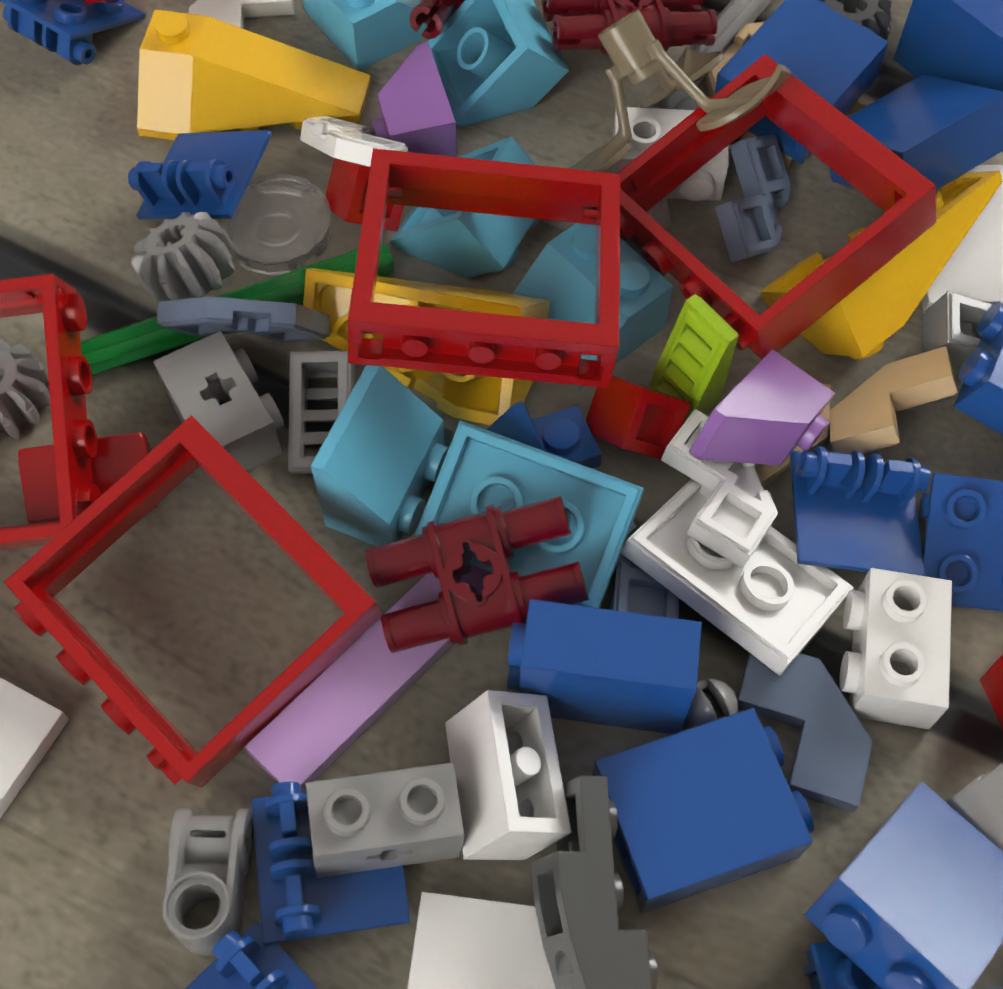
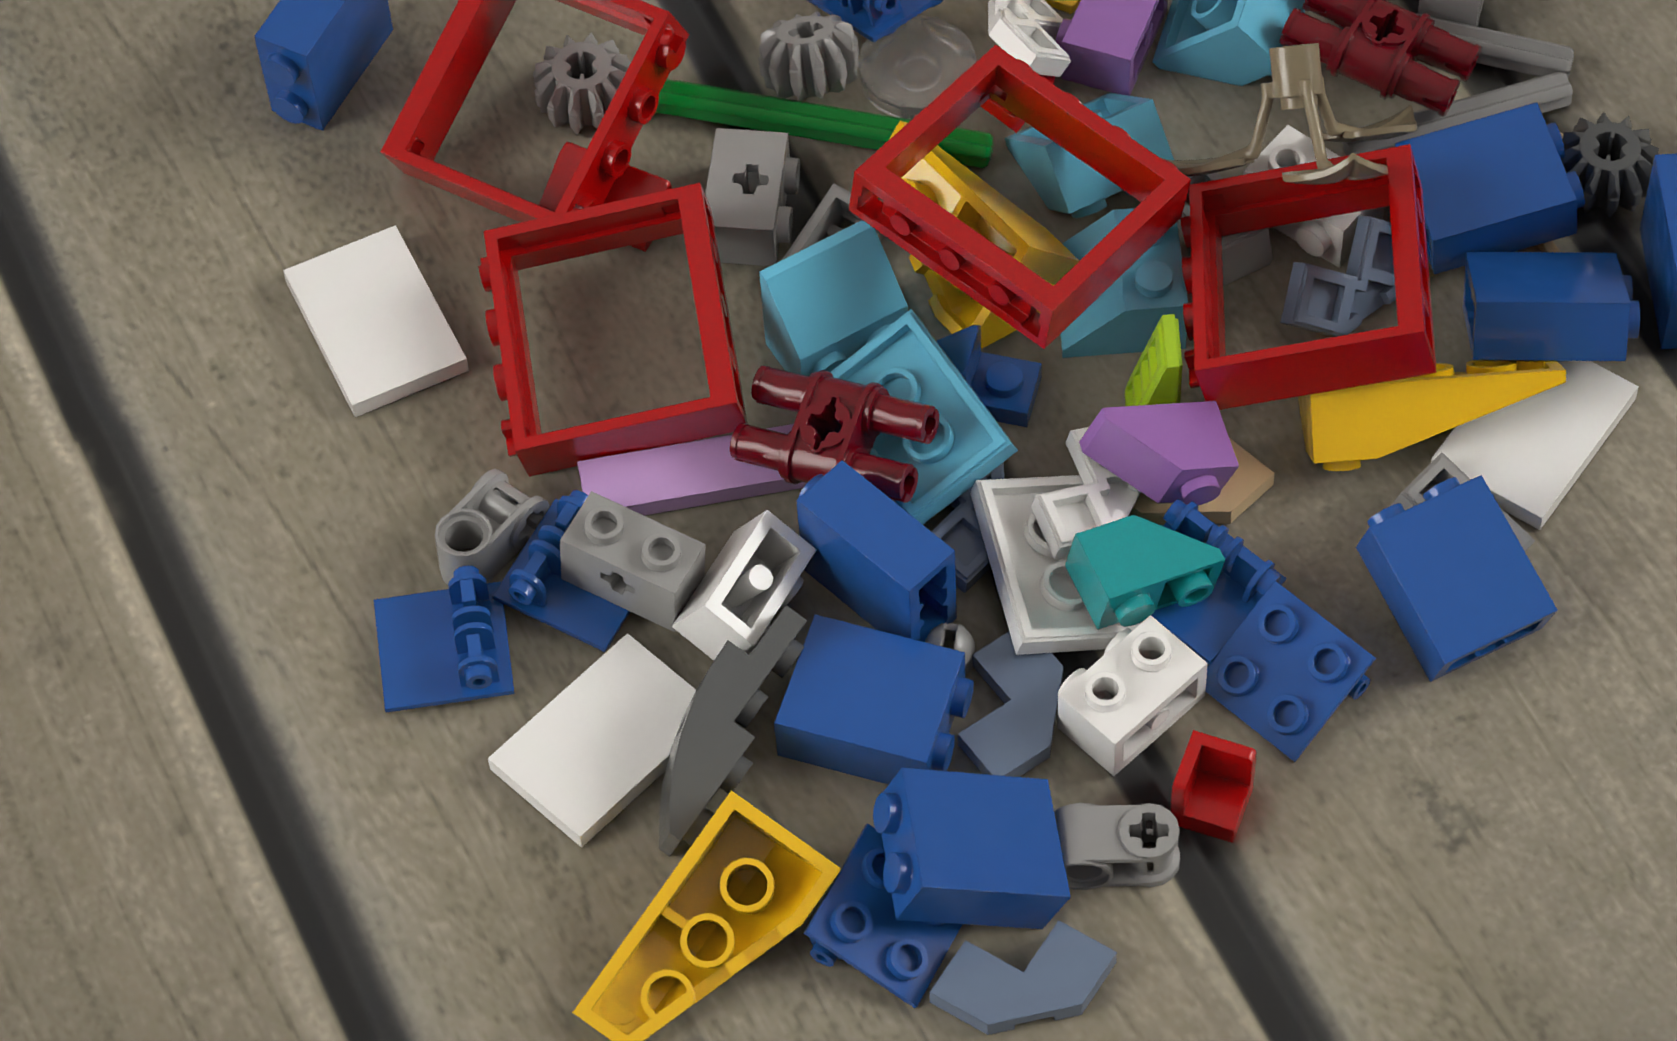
camera: 40 degrees right, 5 degrees down
(265, 319) = (800, 124): sand blue tile -> none
(636, 416) = (1077, 394): red panel -> none
(826, 537) = (1139, 567): none -> teal slope
(868, 417) = (1278, 514): tan tile -> none

